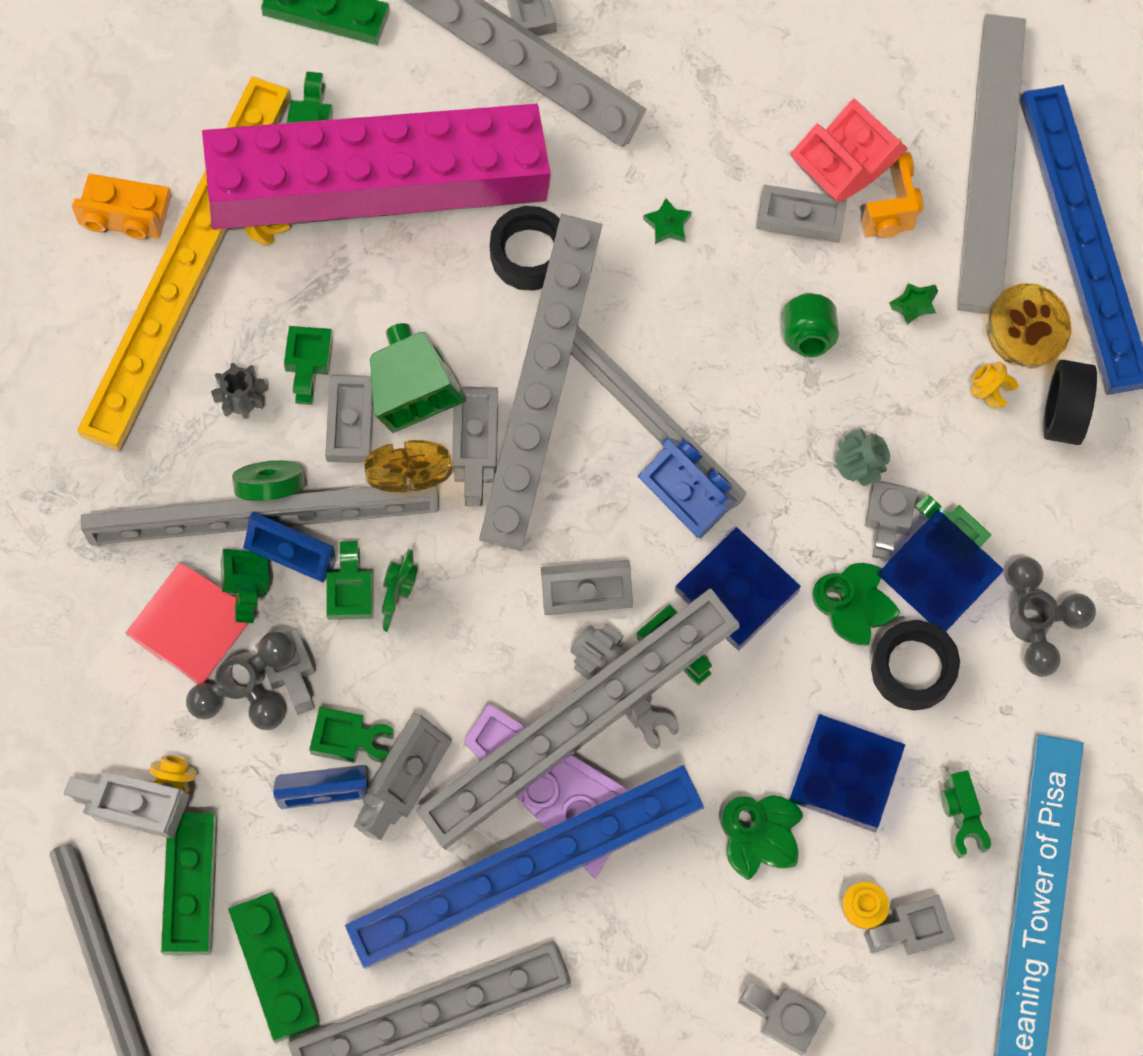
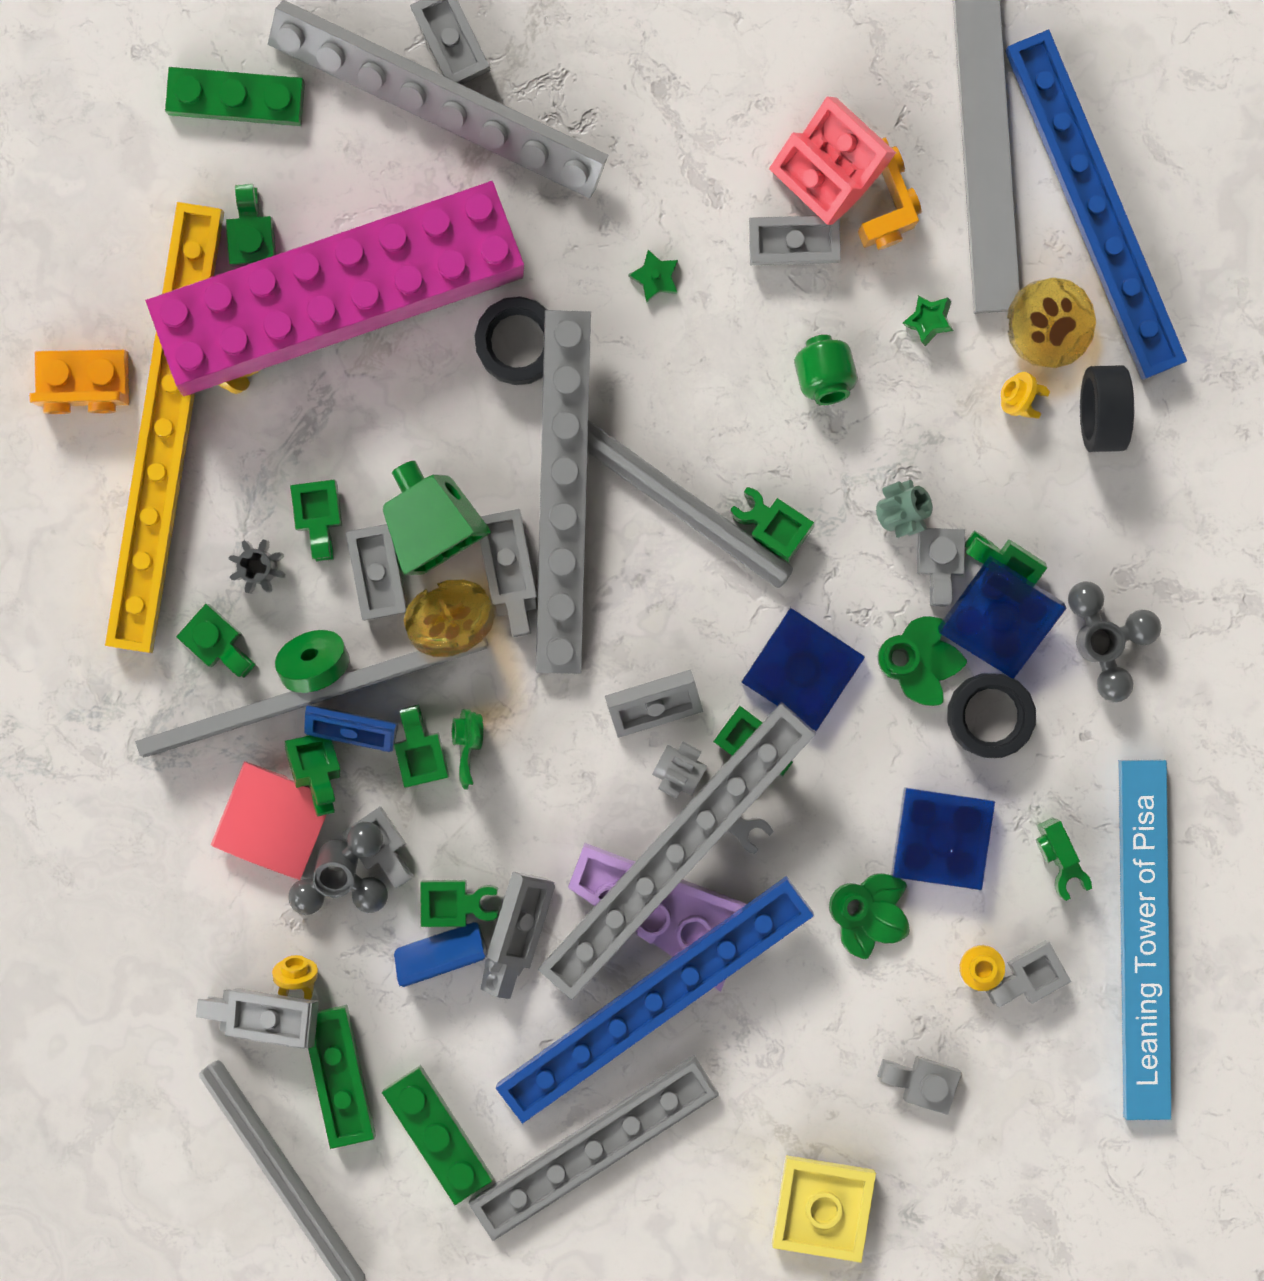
camera: 15 degrees left, 20 degrees up
(181, 450) = (213, 639): none -> green plate
(687, 487) = (734, 577): bracket -> none
(737, 453) = (777, 527): none -> green plate

